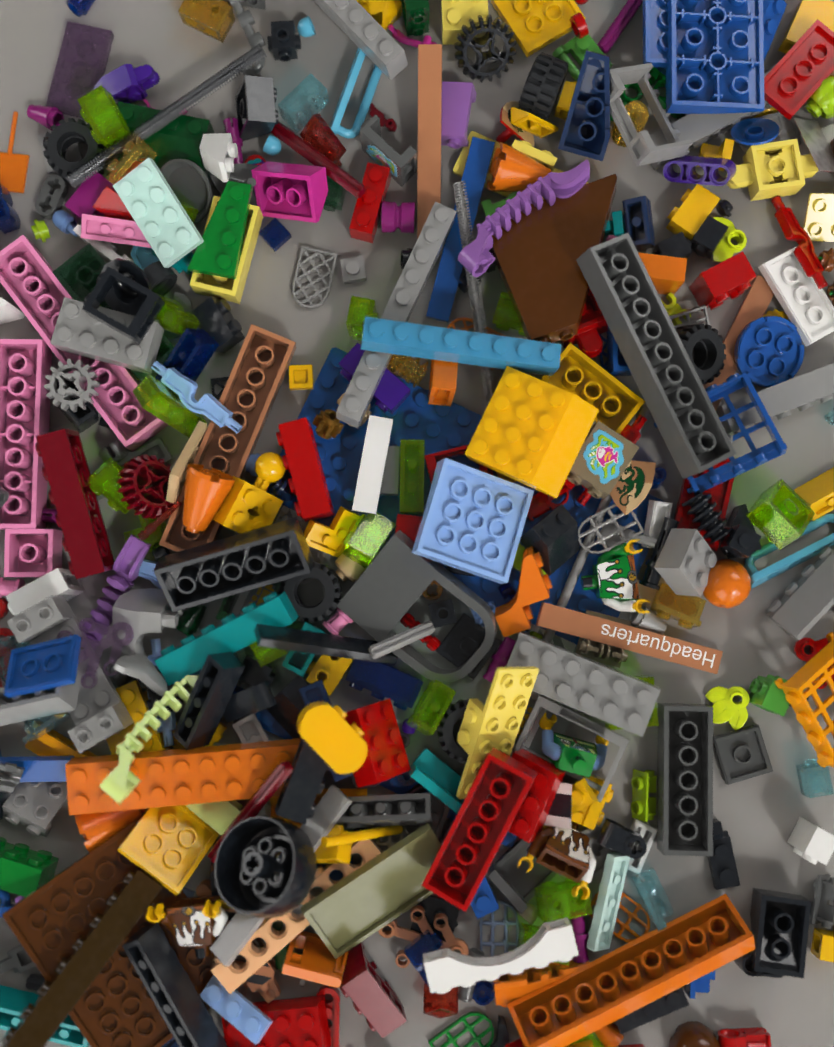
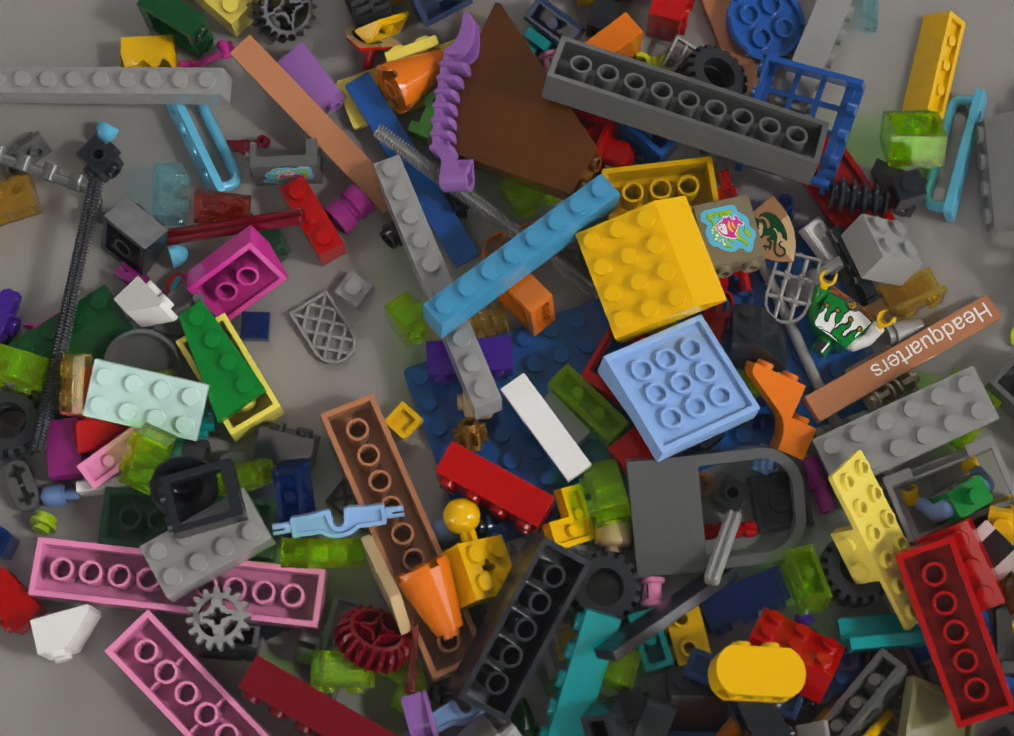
camera: 45 degrees left, 10 degrees down
(128, 244) = (148, 449): none -> clear neon green brick
(727, 584) = (933, 235): orange piece -> none

